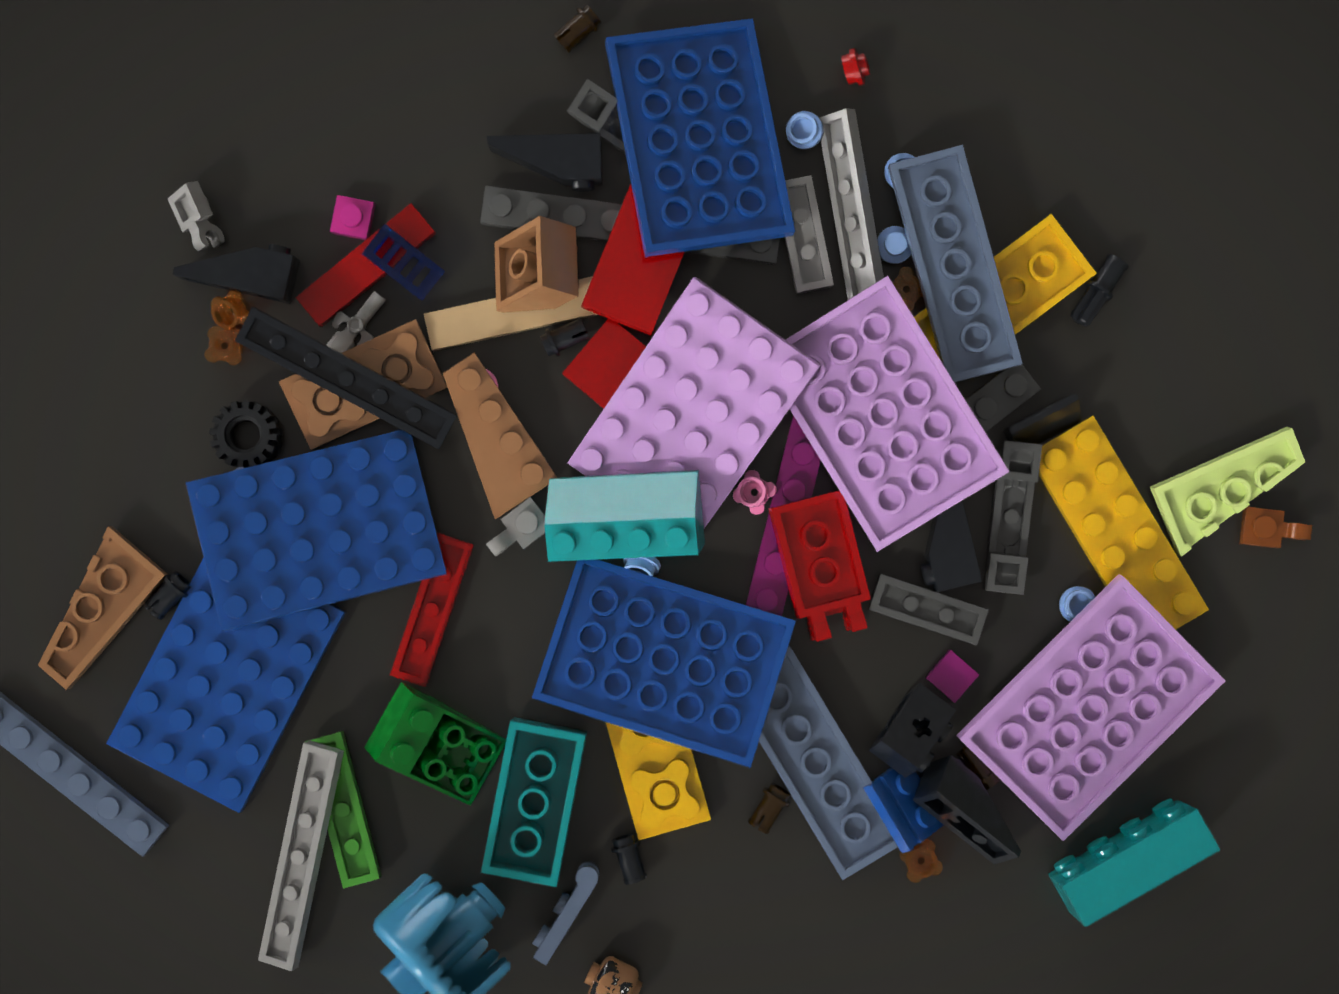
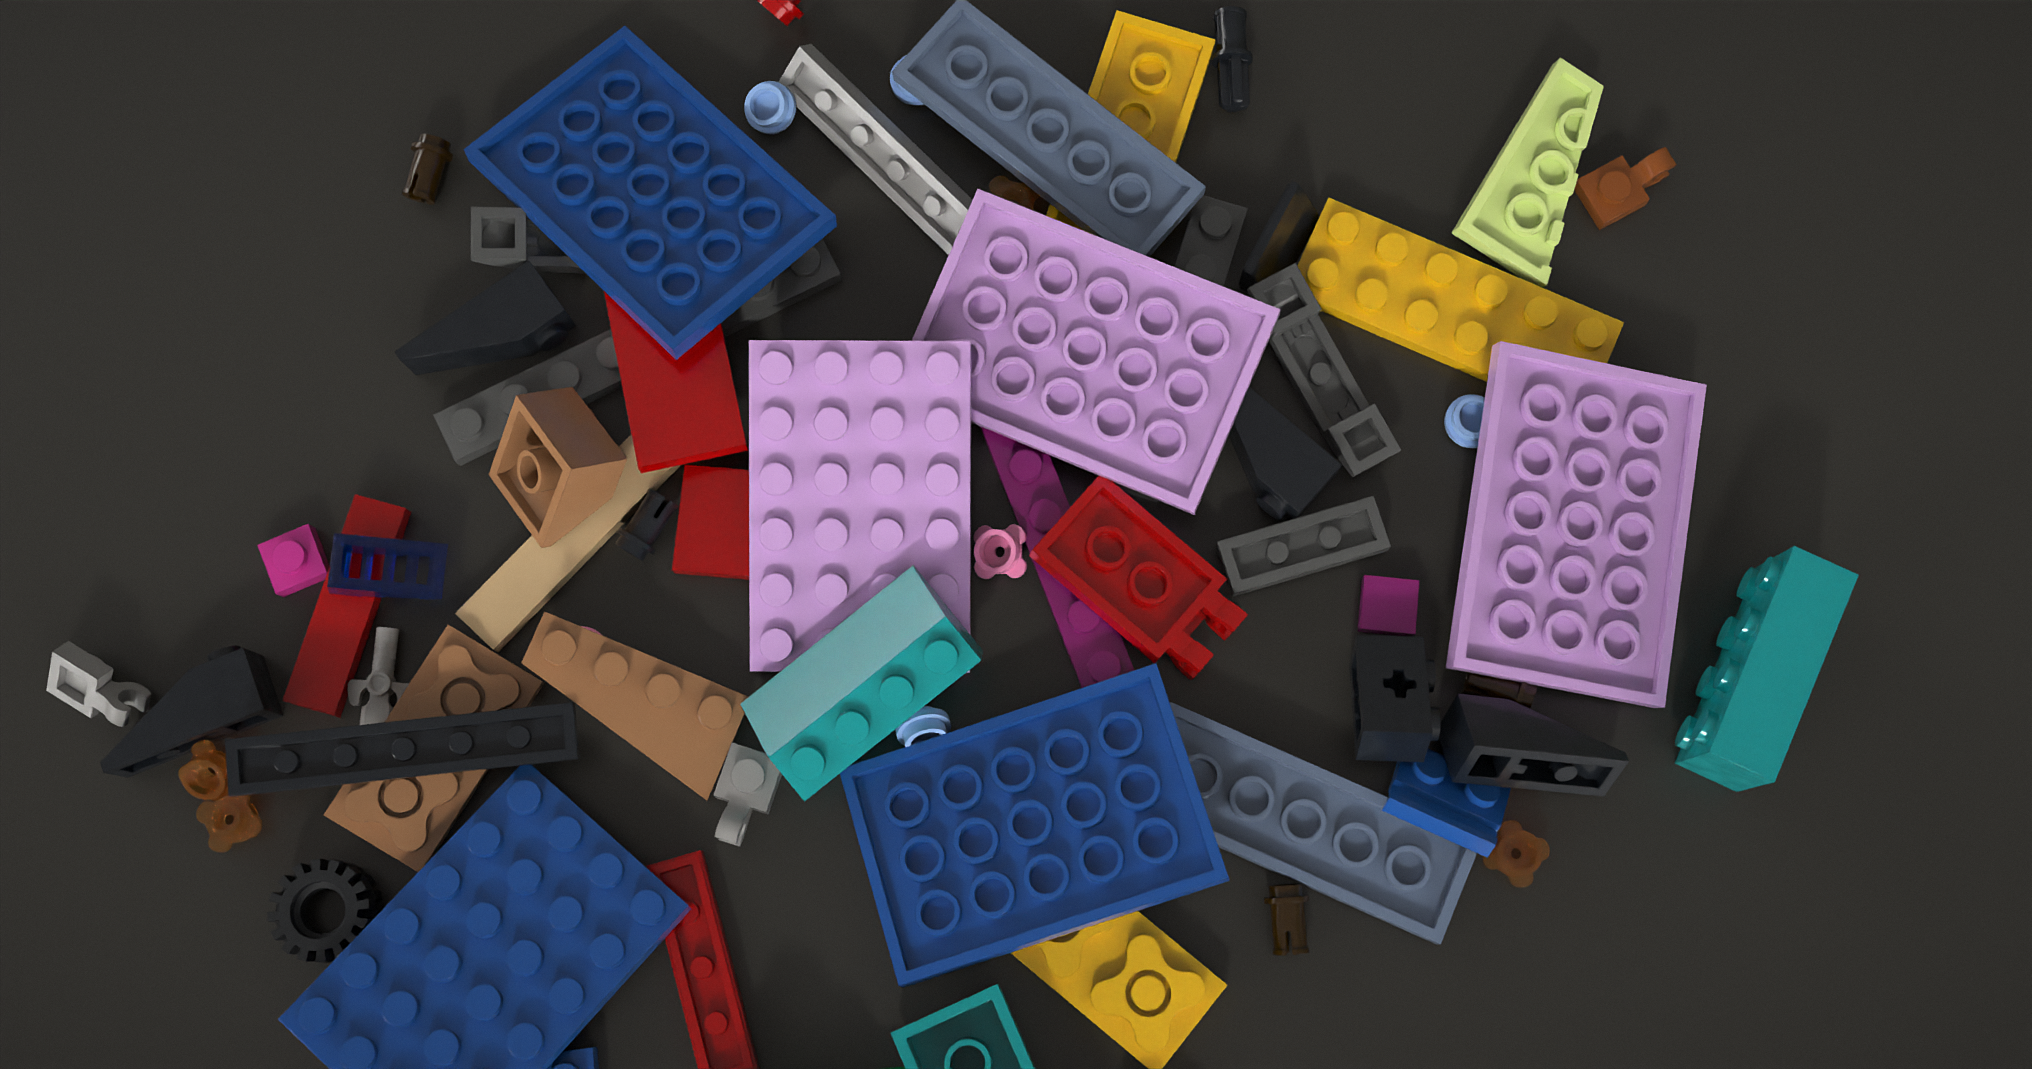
camera: 40 degrees left, 10 degrees down
(807, 246) = (861, 228): light grey plate -> none
(894, 245) = (964, 163): light blue plate -> none

